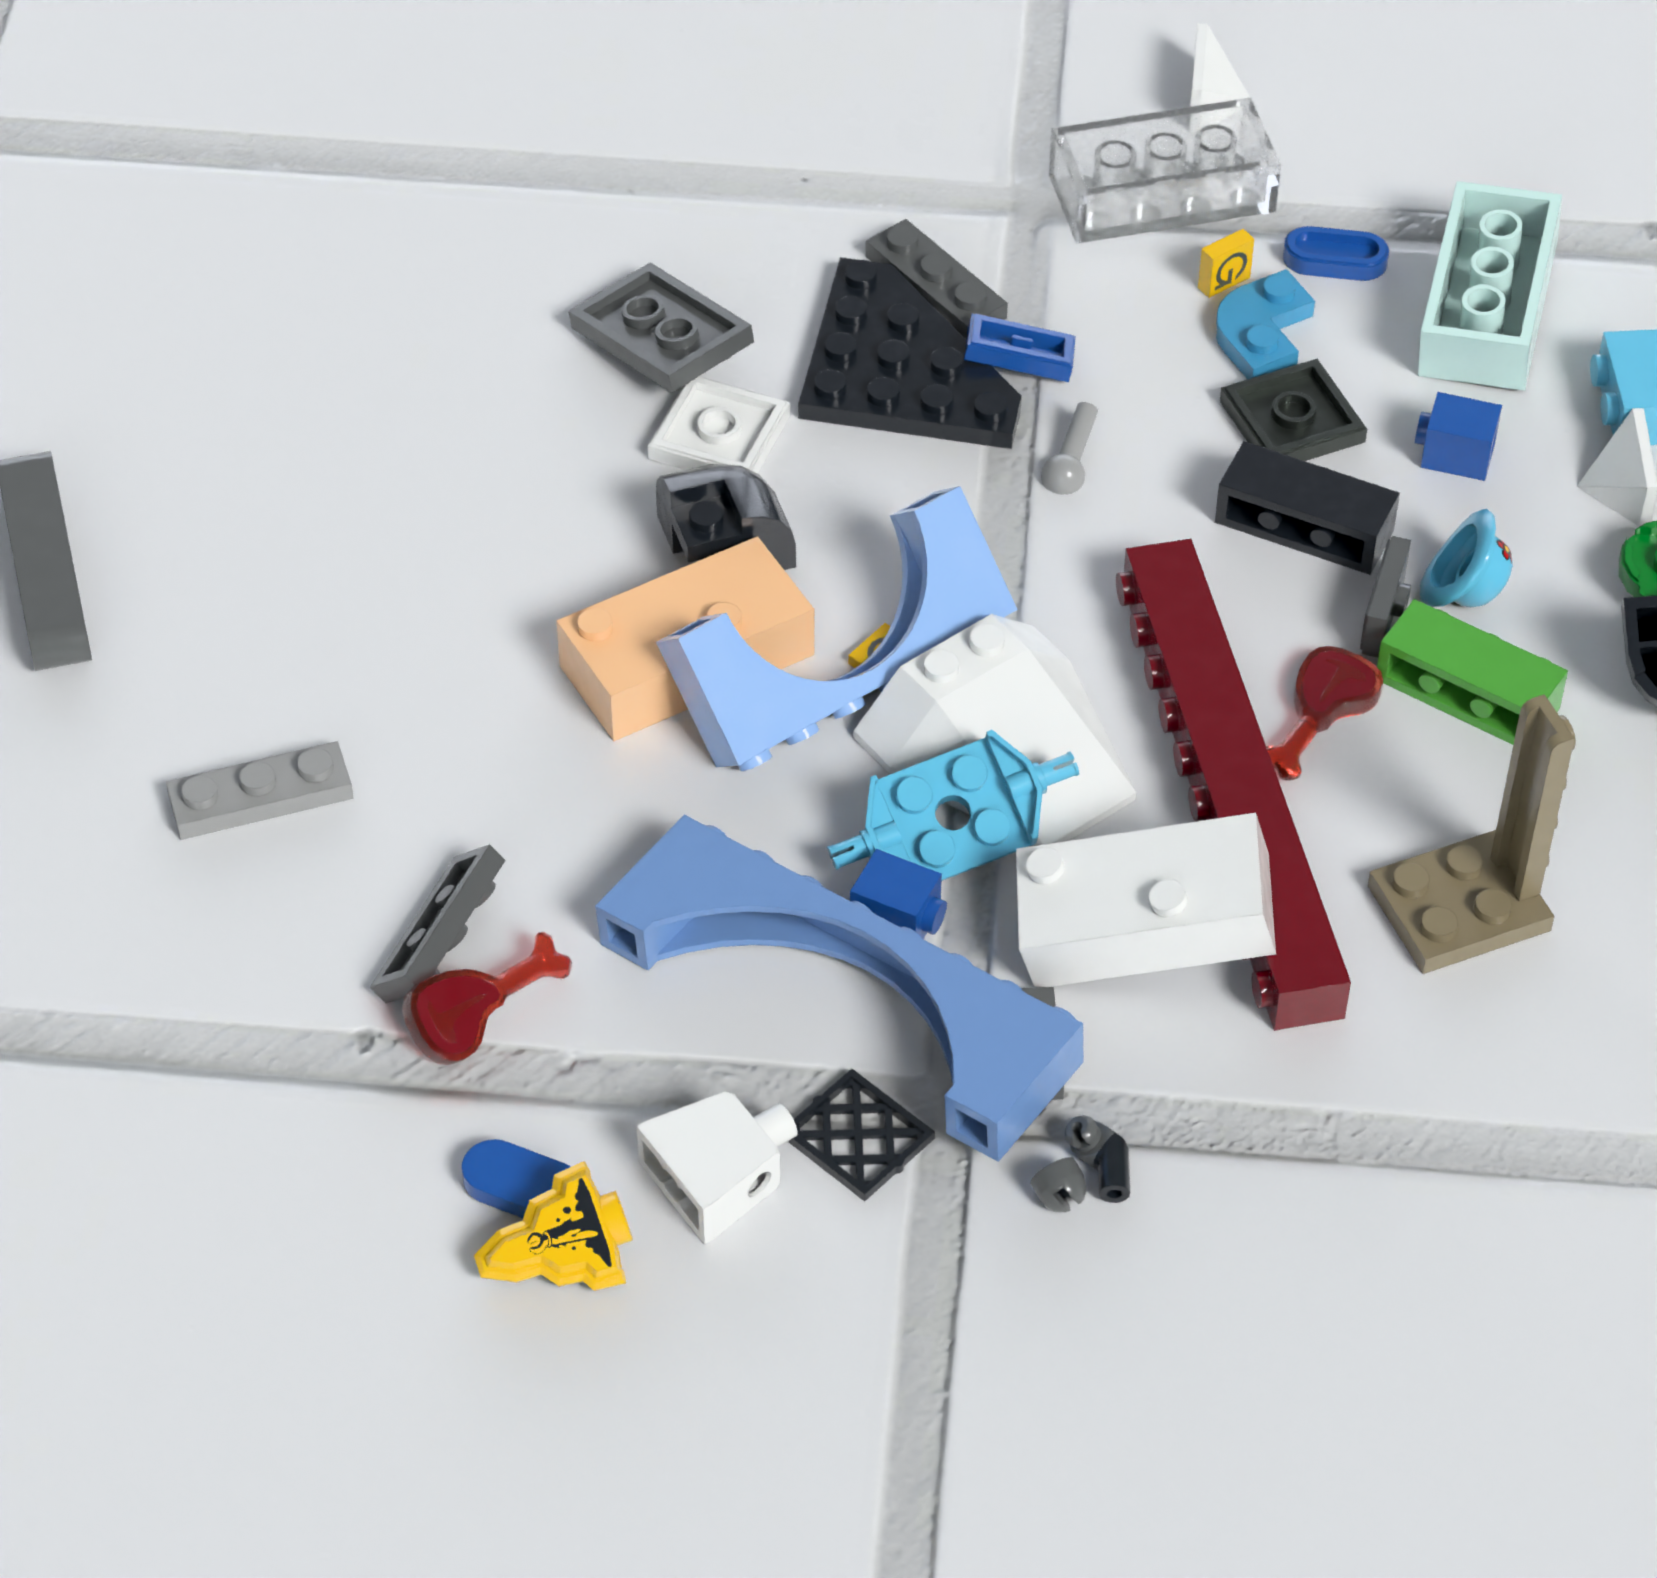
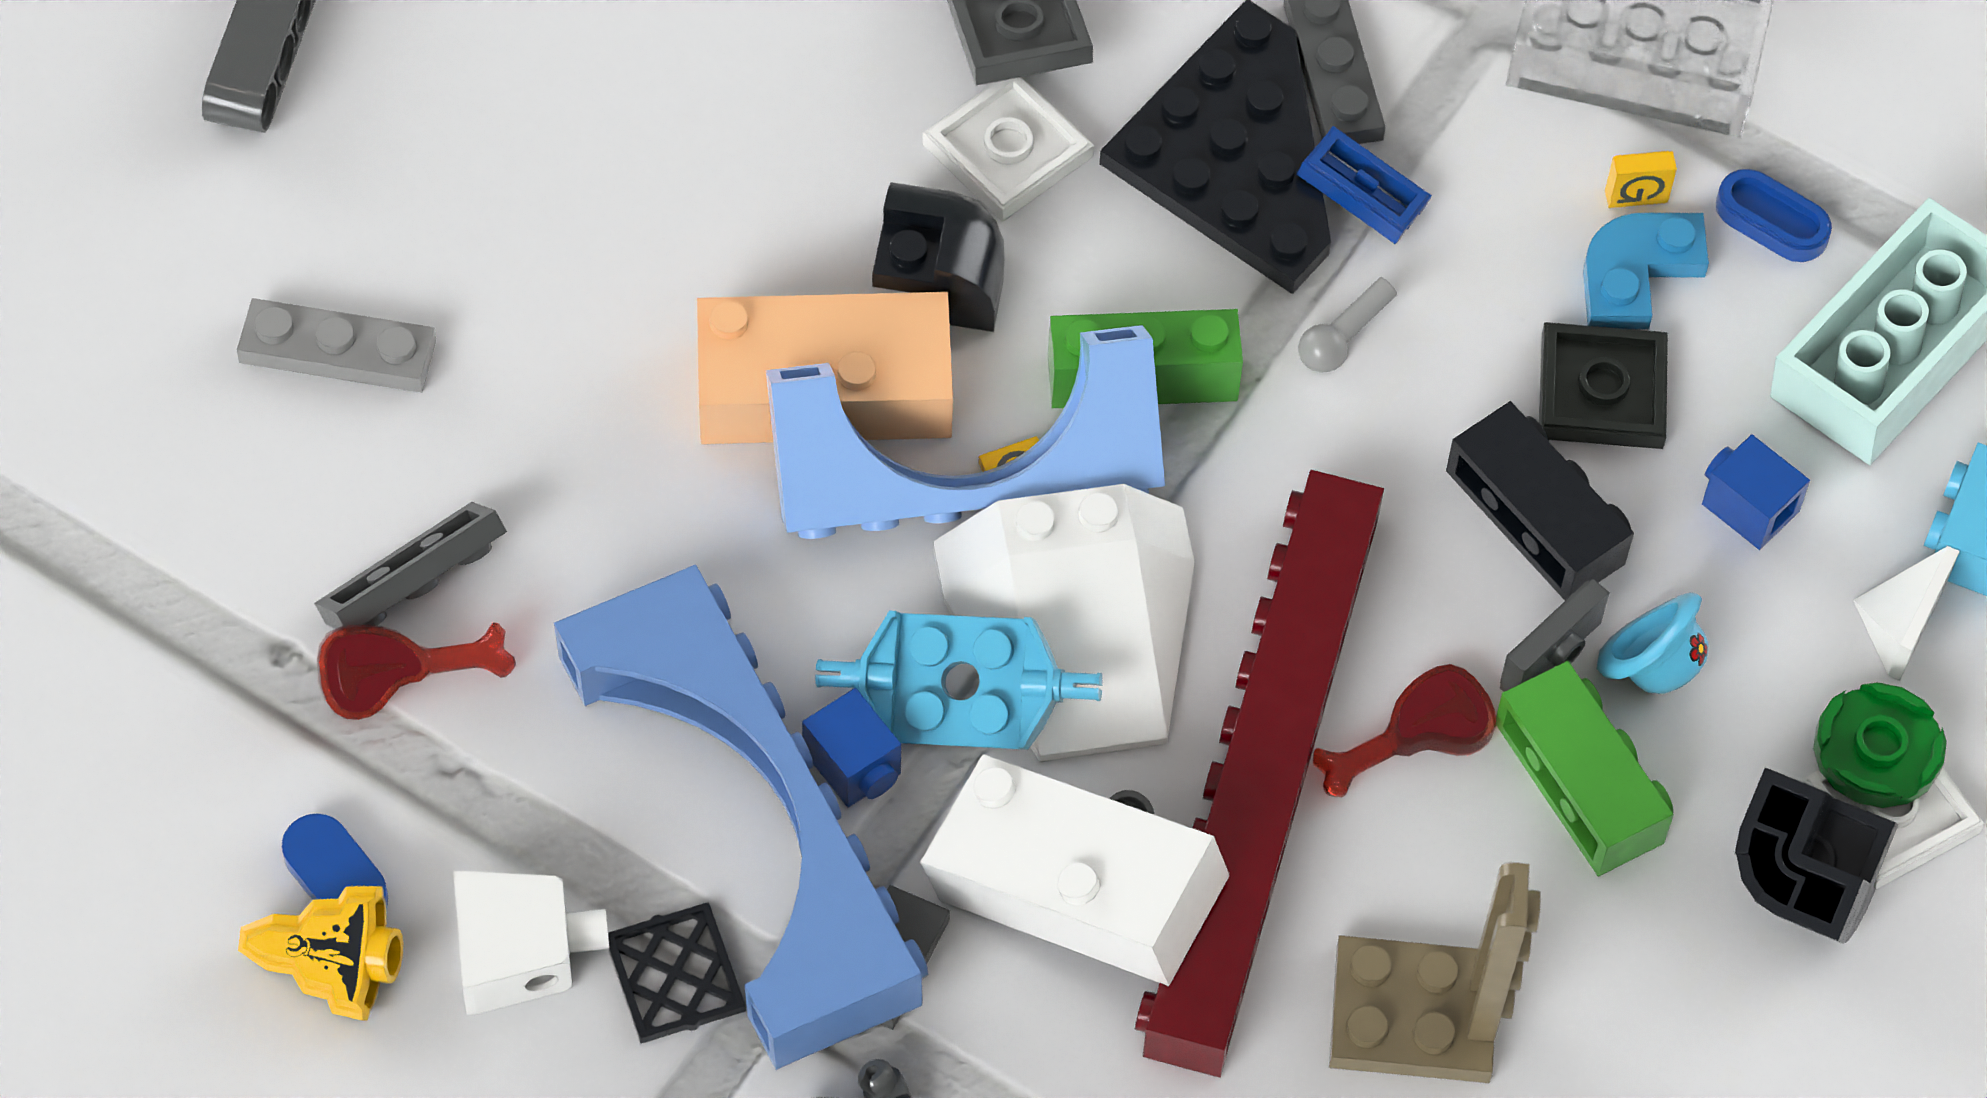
camera: 25 degrees right, 10 degrees up
(991, 496) = (1193, 350): none -> bright green brick

